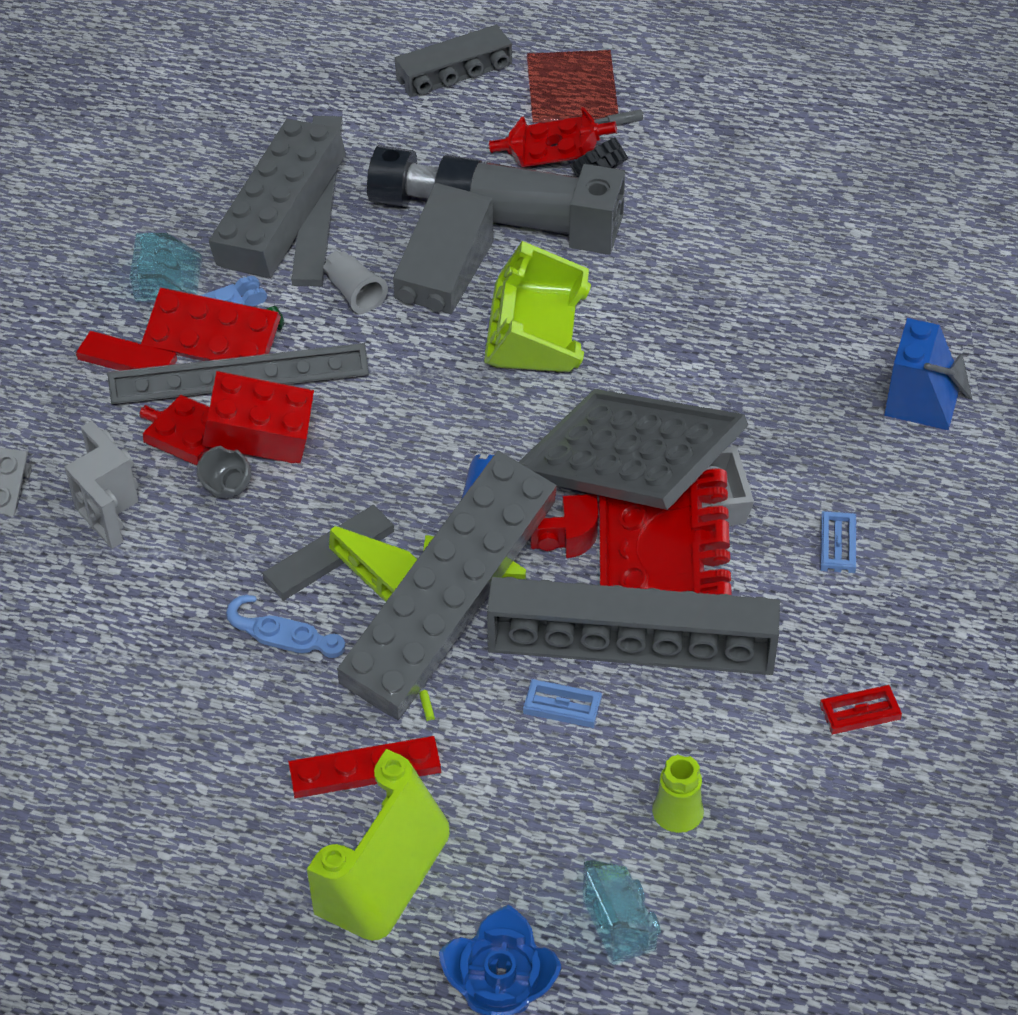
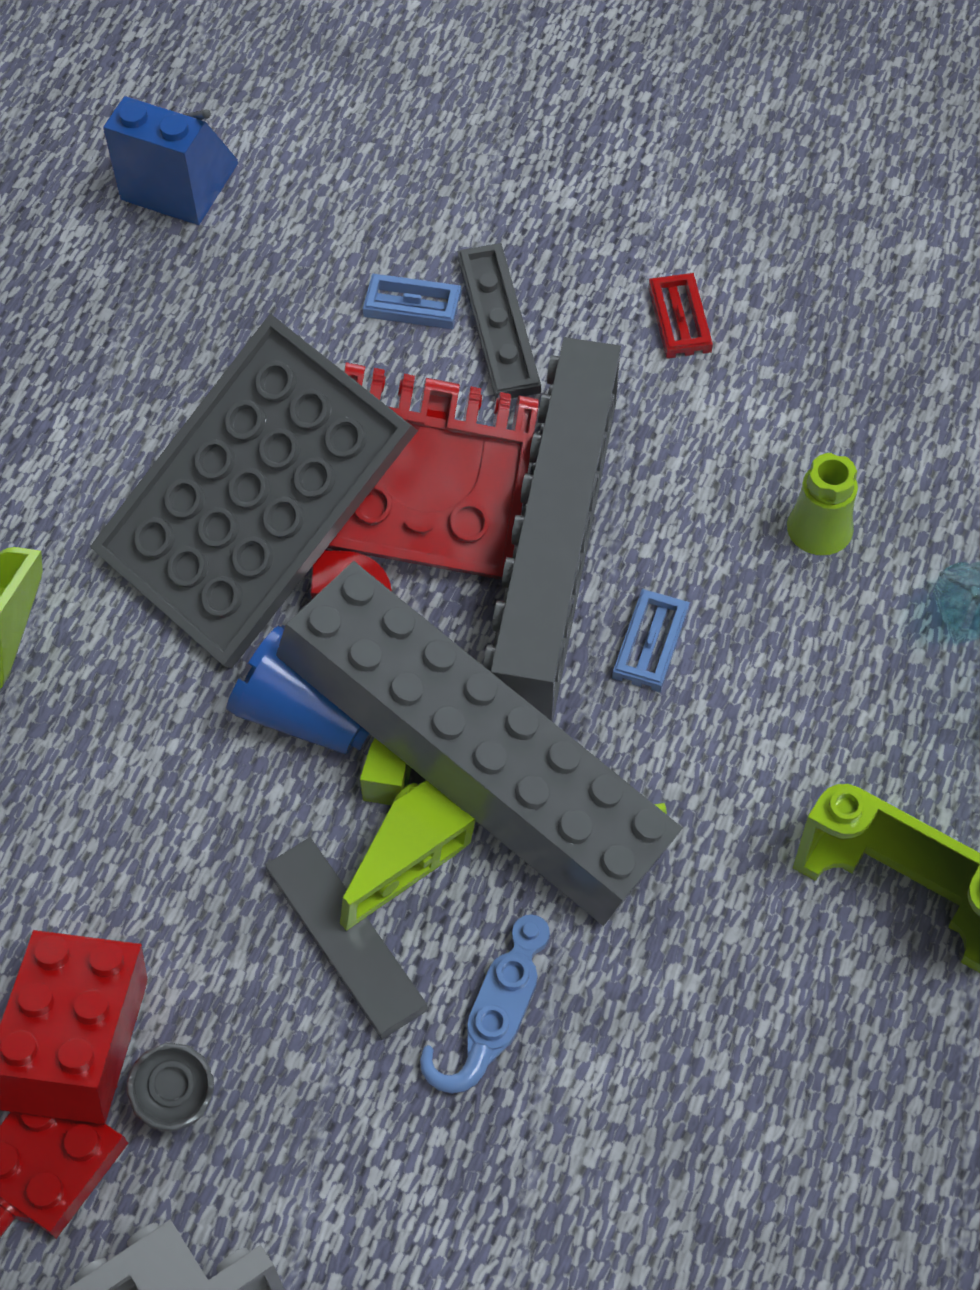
camera: 85 degrees left, 10 degrees up
(357, 766) = (748, 900): red plate -> none
(836, 593) = (499, 321): none -> dark grey tile

